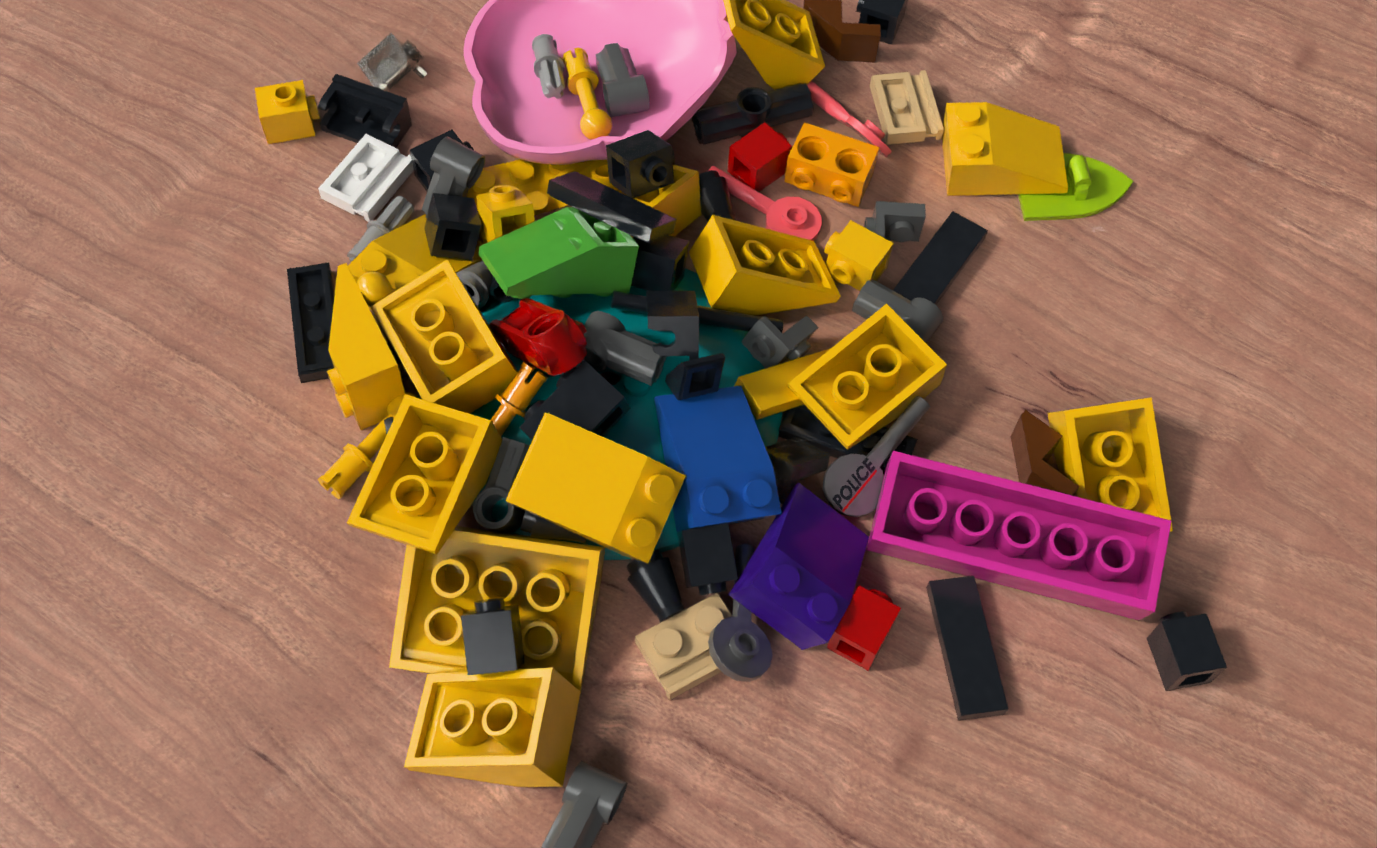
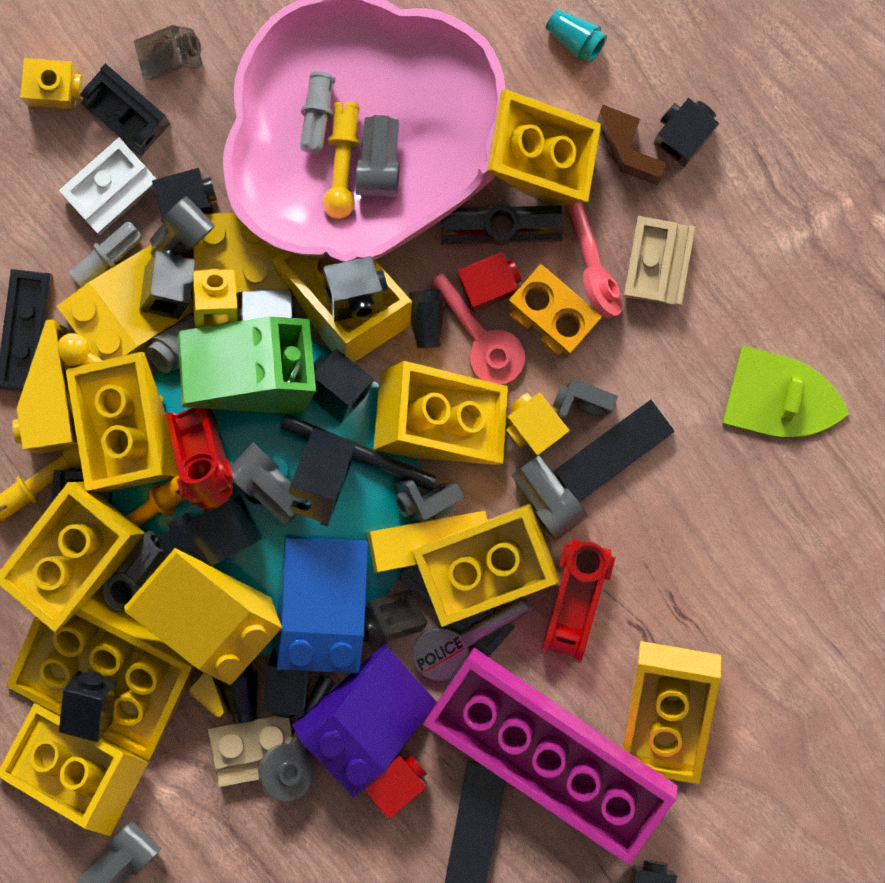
camera: 25 degrees right, 25 degrees up
(611, 207) = (309, 329): black tile -> none
(624, 596) = (209, 694): none -> yellow slope
(696, 376) = (320, 537): black slope -> none
(968, 393) = (576, 600): none -> red piece
(1000, 152) = (729, 349): yellow slope -> none
(1032, 447) = (610, 674): reddish brown slope -> none

